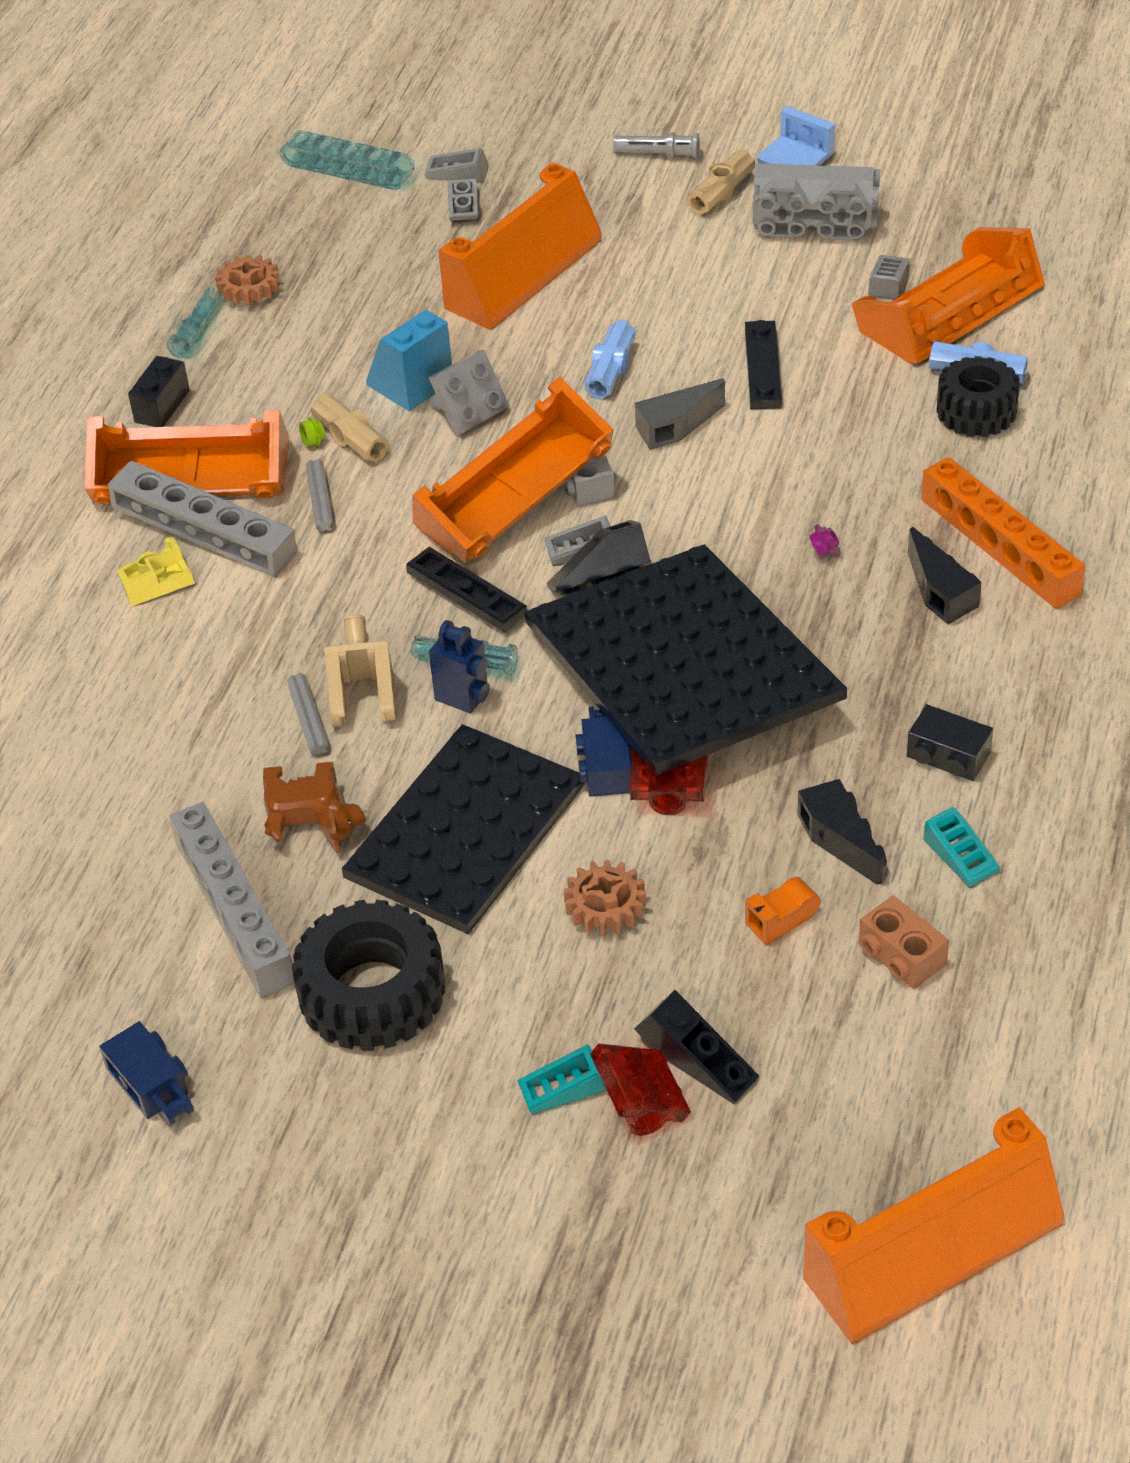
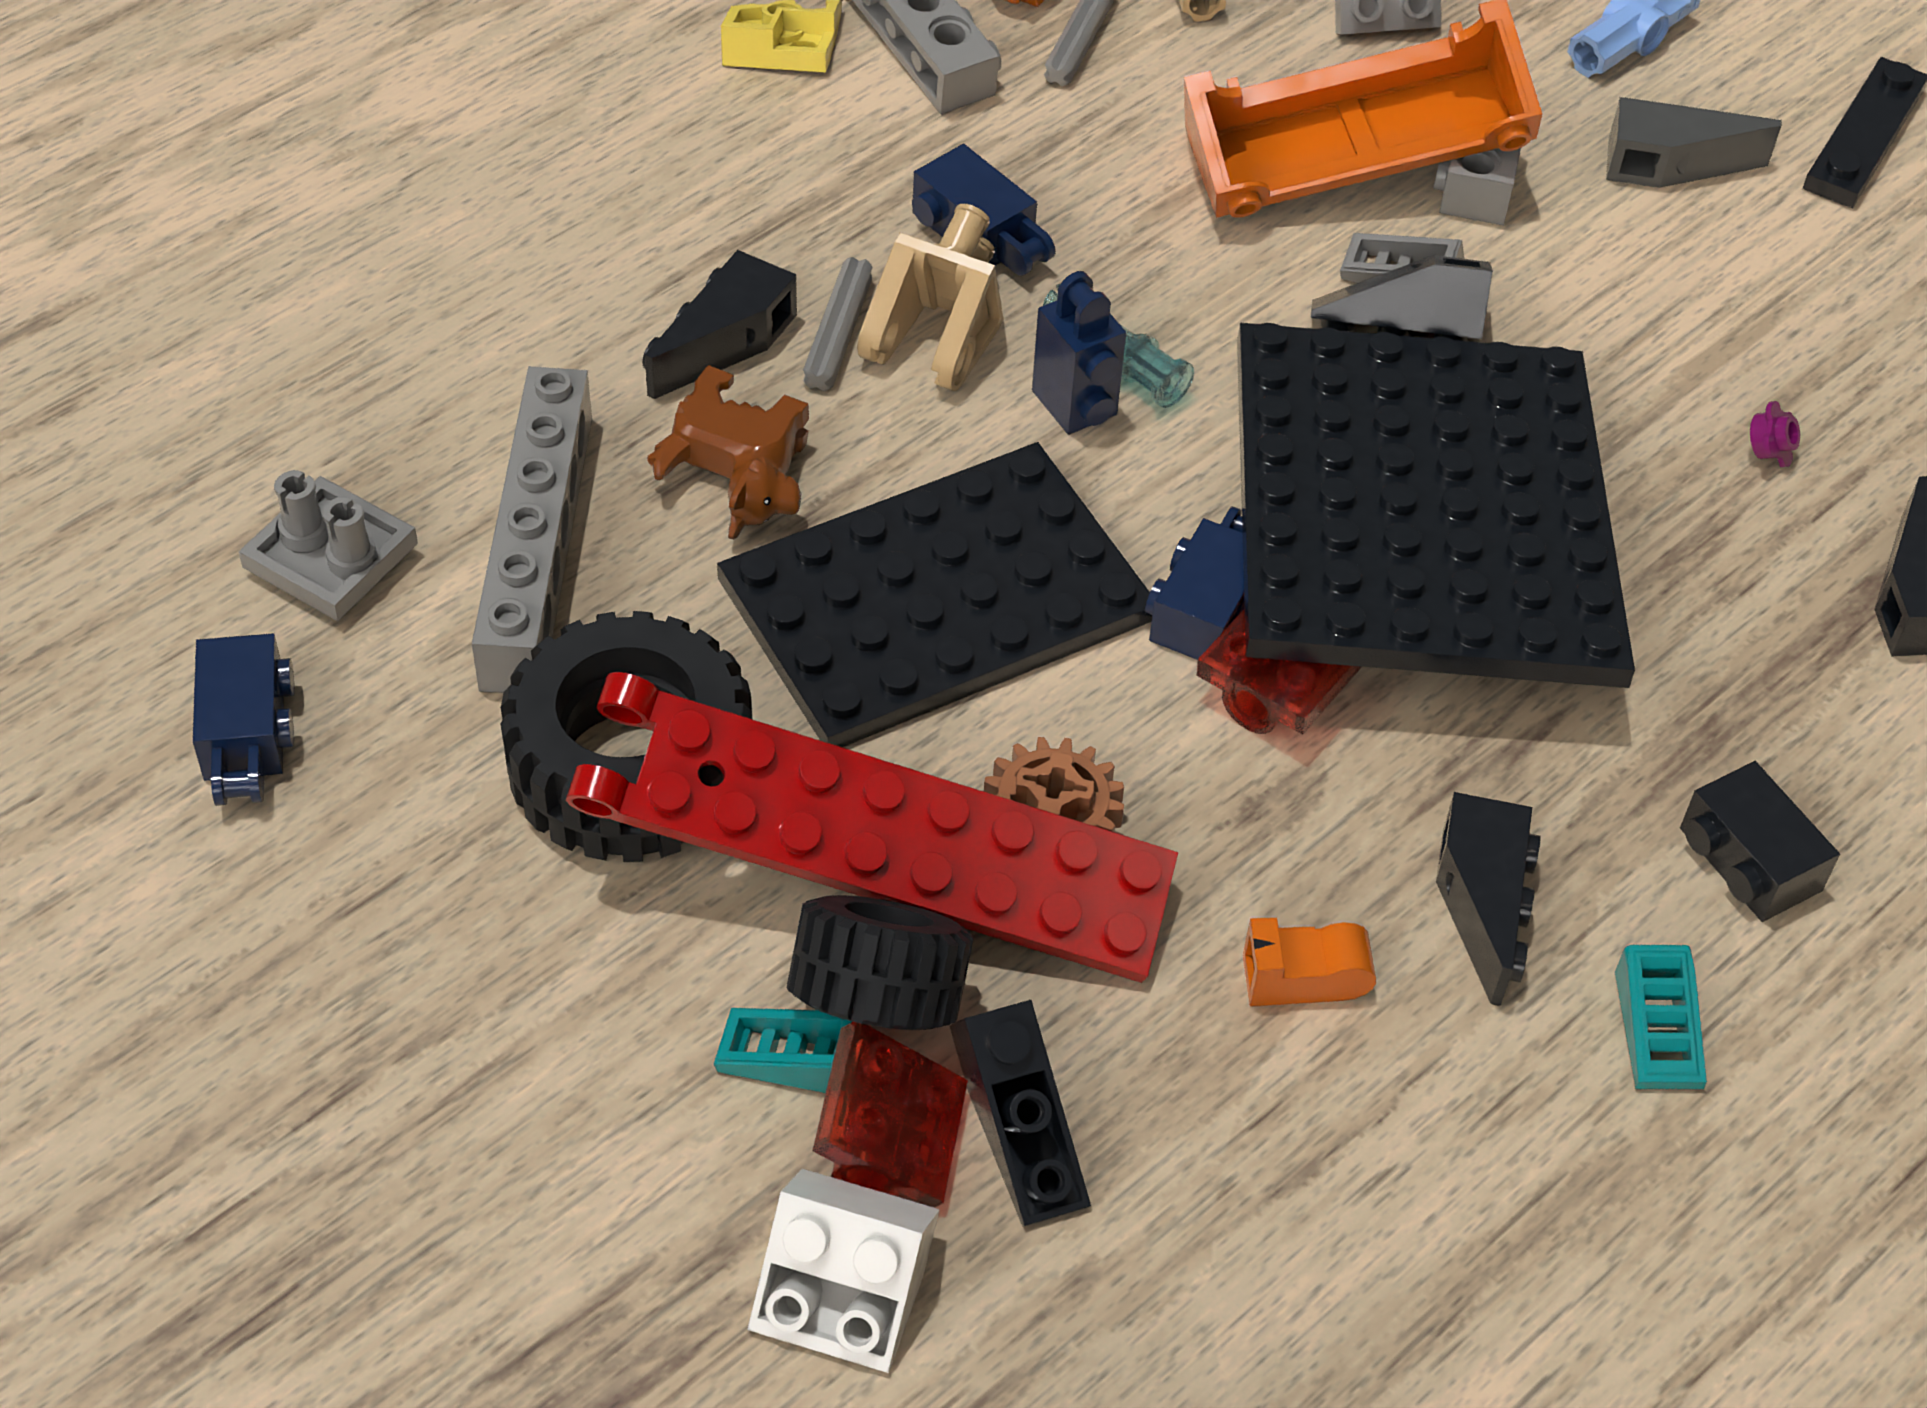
camera: 25 degrees right, 5 degrees up
(123, 965) = (326, 544): none -> light grey plate
(251, 742) = (726, 323): none -> black slope
(323, 613) = (969, 179): none -> dark blue brick
(466, 589) = (1187, 254): black plate -> none
(537, 951) = (883, 831): none -> red hinge
(586, 1012) = (879, 962): none -> black tyre
(668, 1166) = (842, 1269): none -> white slope
(903, 942) = (1471, 1117): nougat brick -> none

